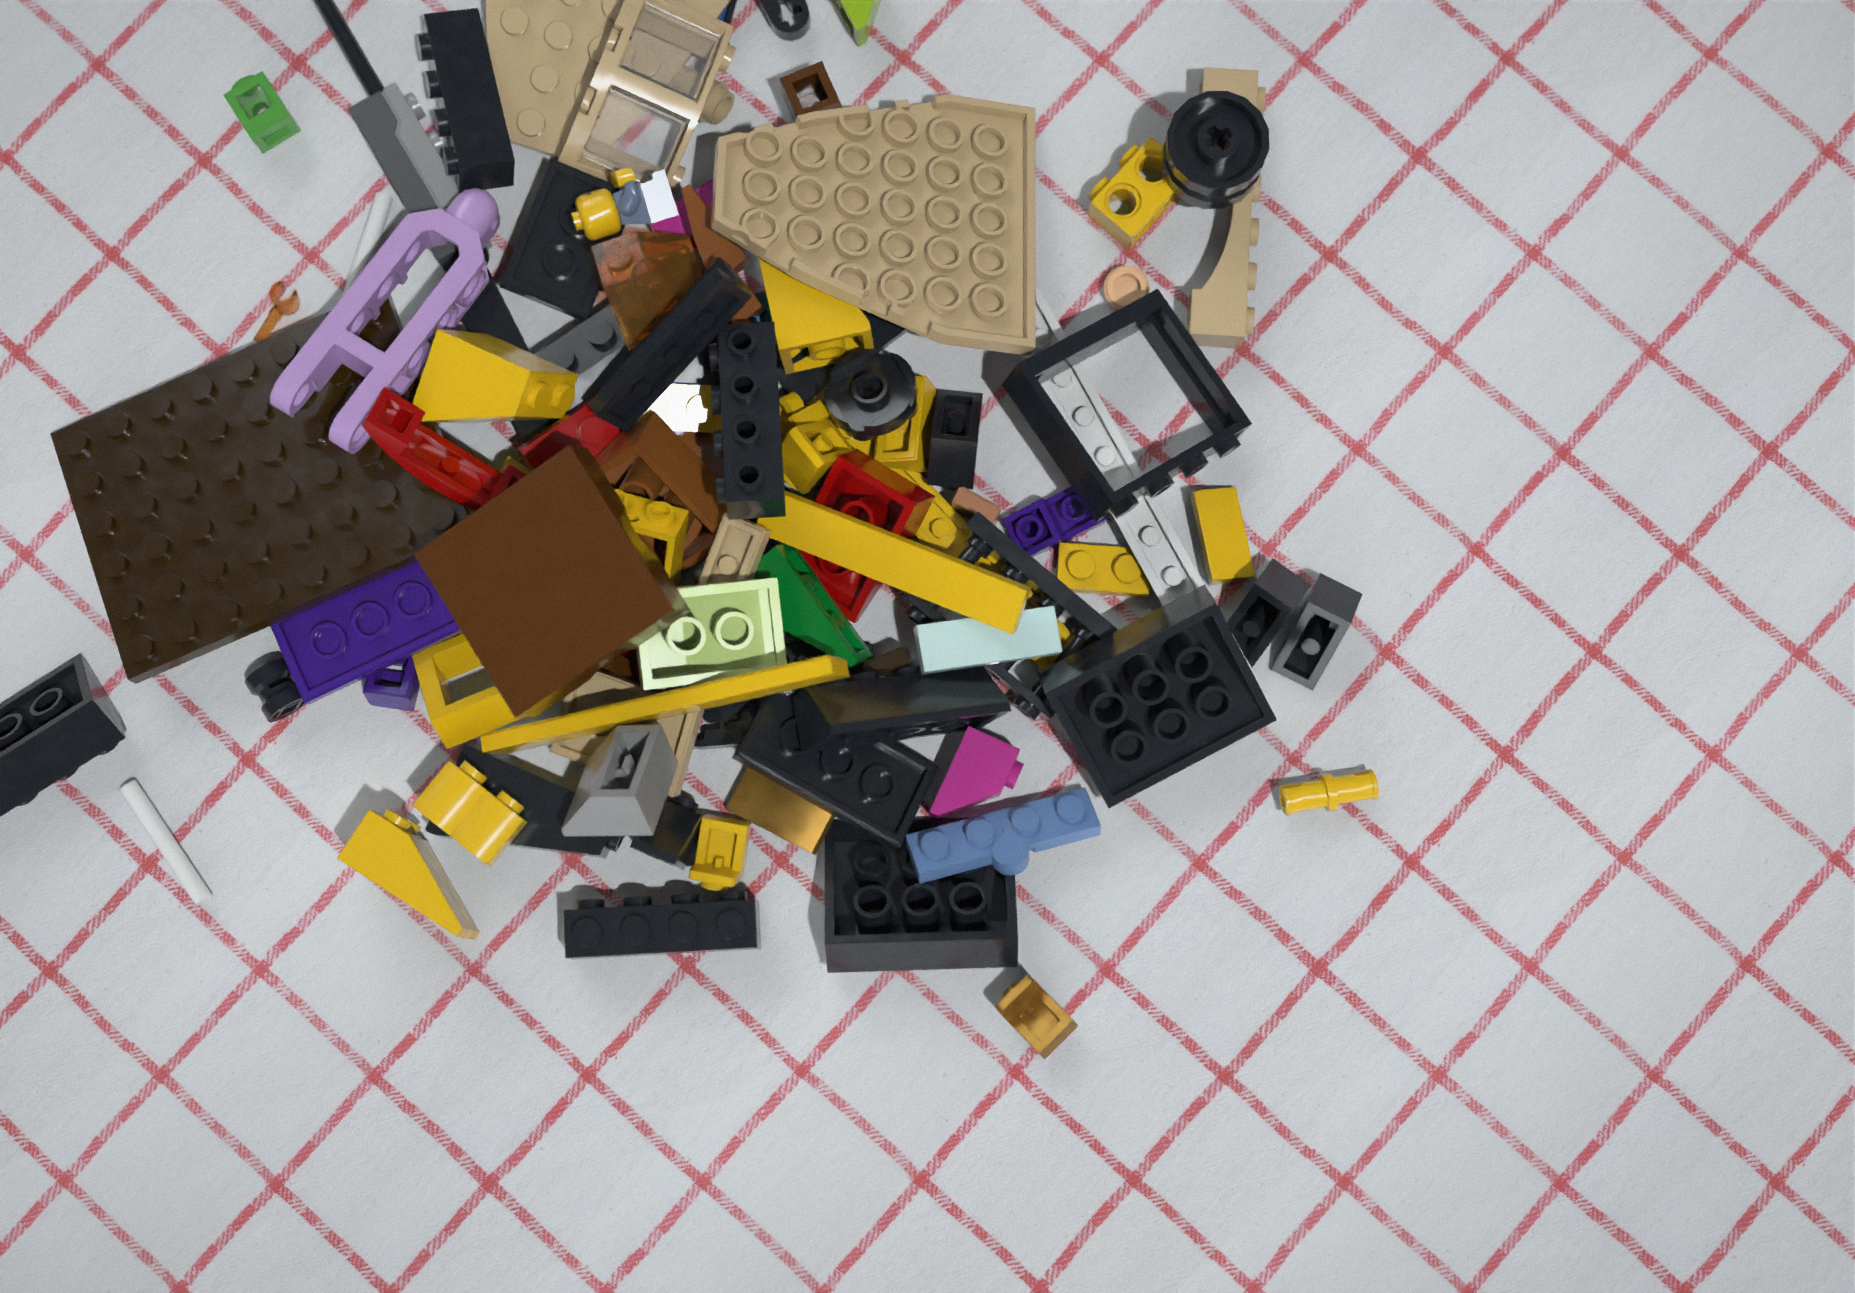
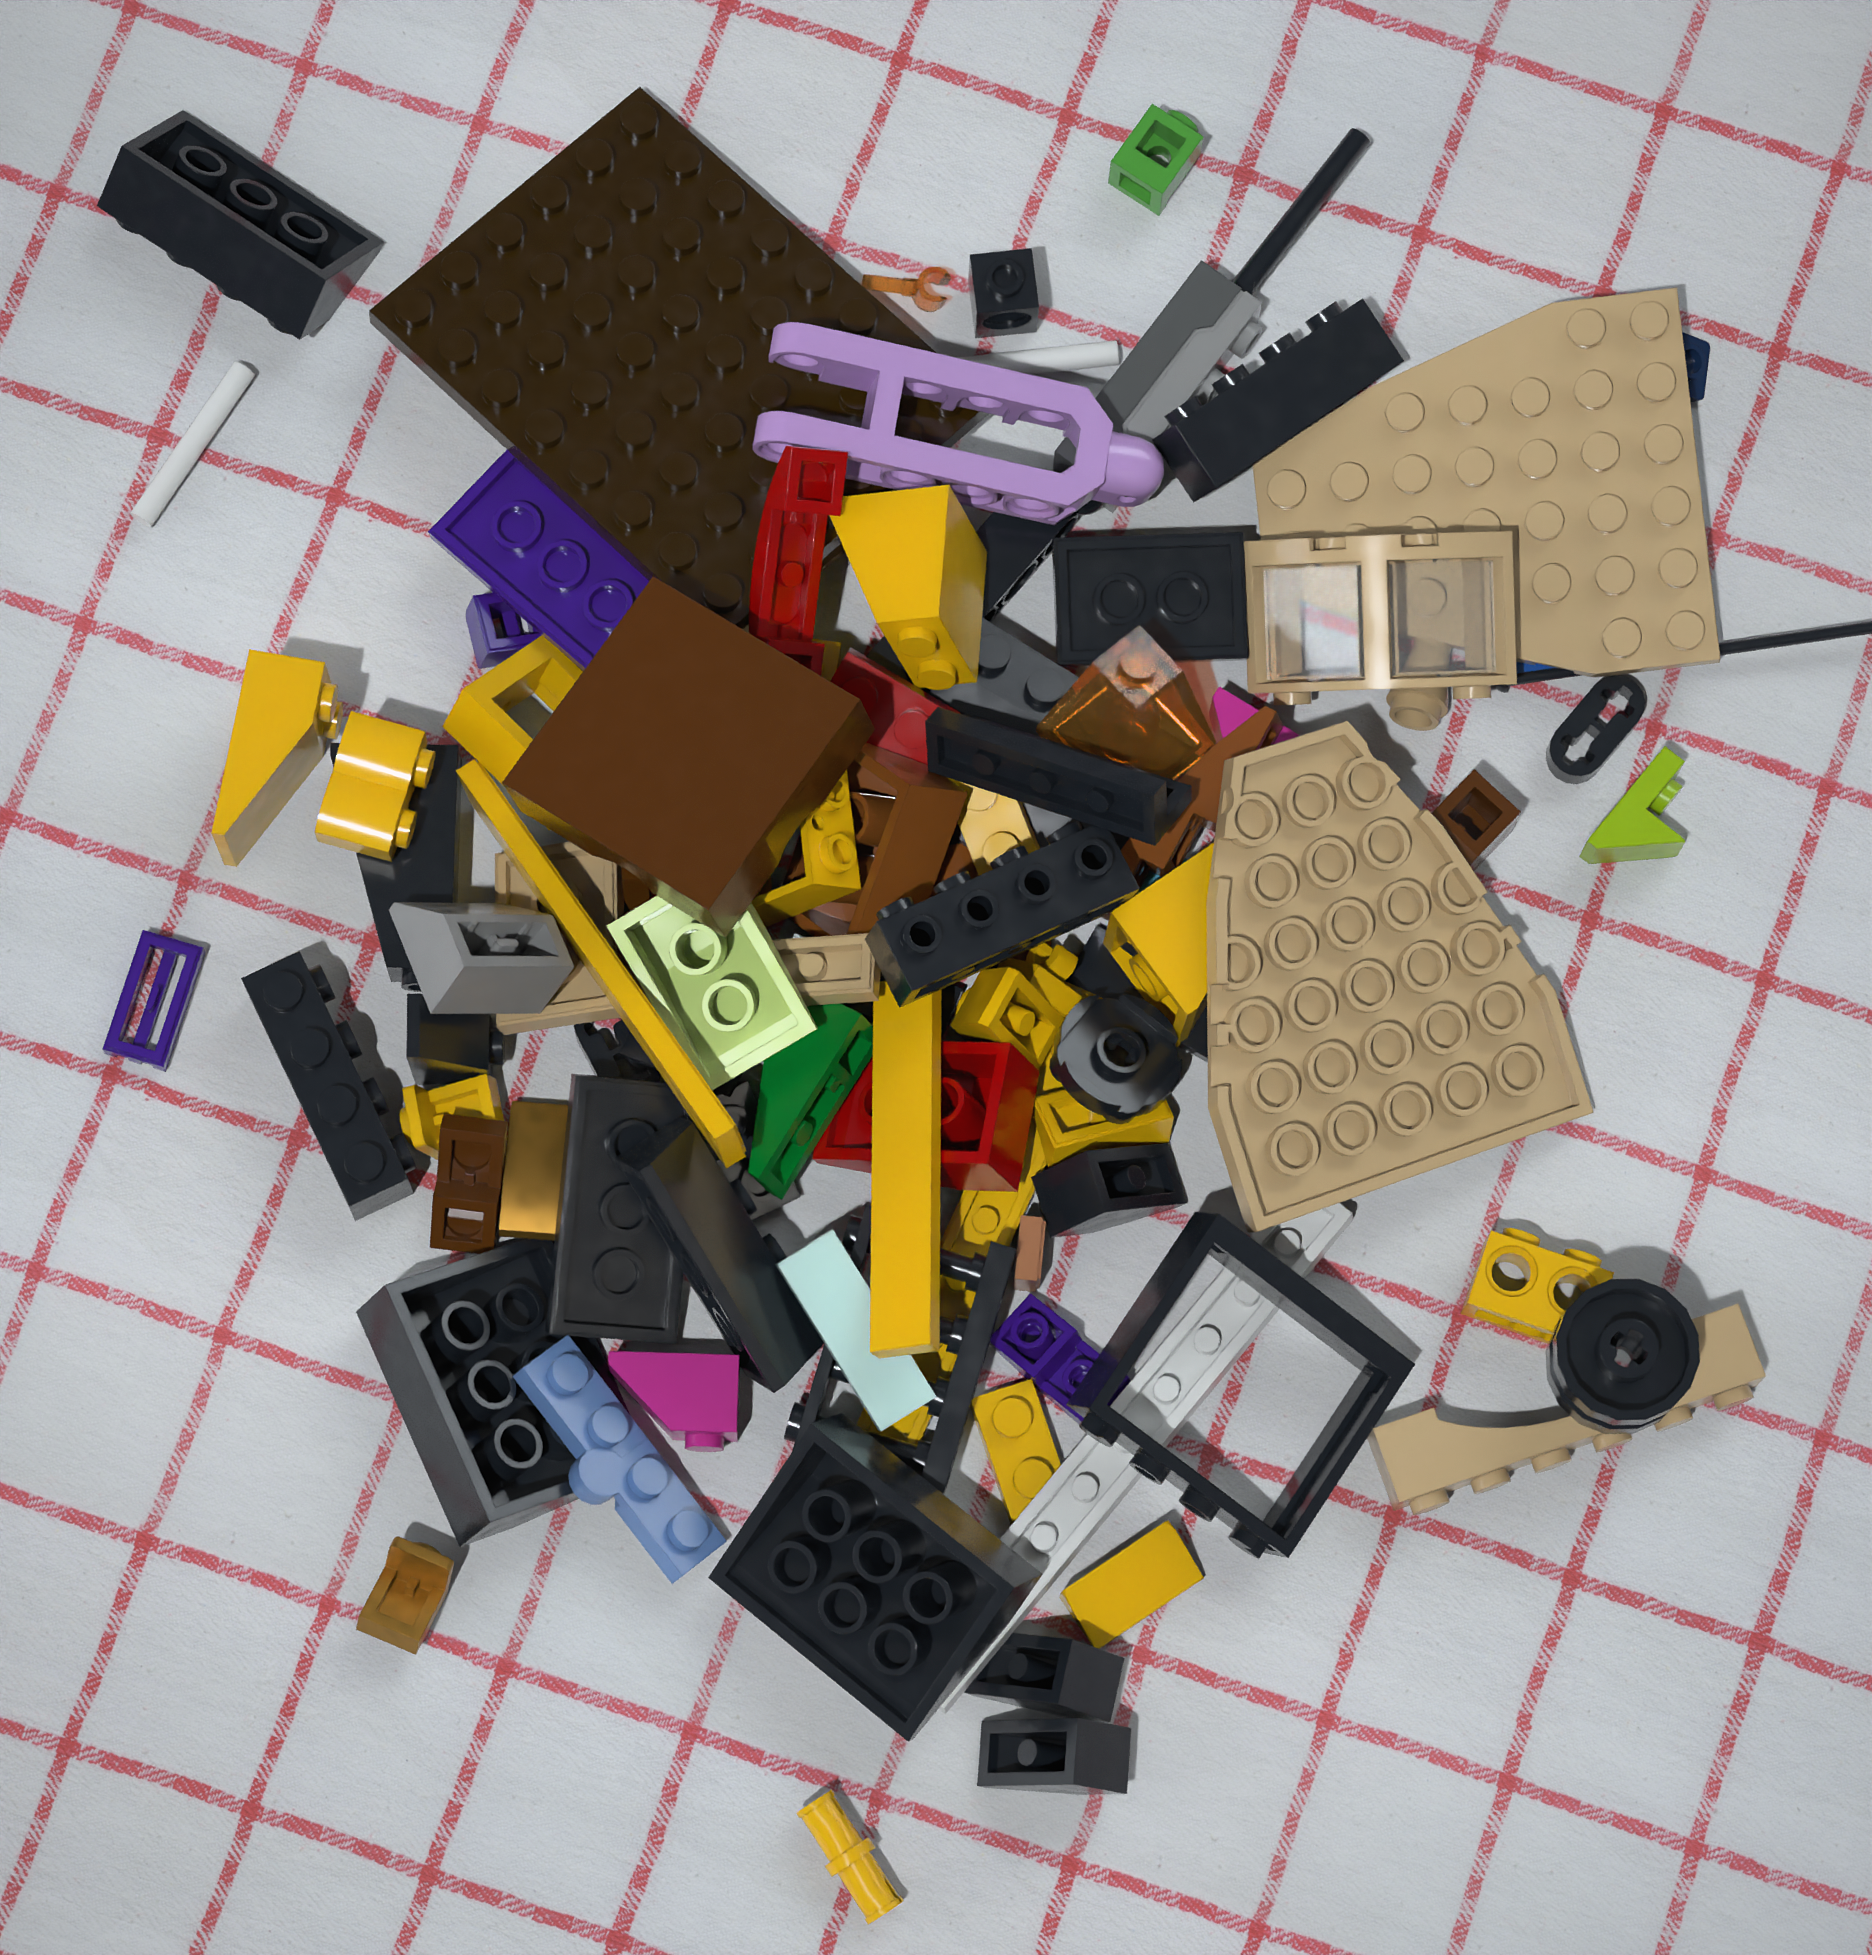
camera: 60 degrees right, 5 degrees down
(275, 689) = (432, 491): black wheel -> none
(310, 250) = (1003, 293): none -> black brick
(580, 1051) = (138, 1050): none -> dark purple tile
(603, 213) = (1221, 652): piece -> none
(772, 860) = (468, 1184): none -> reddish brown slope
(888, 661) = (781, 1222): dark brown tile -> none
(1124, 286) = (1407, 1326): light nougat tile -> none

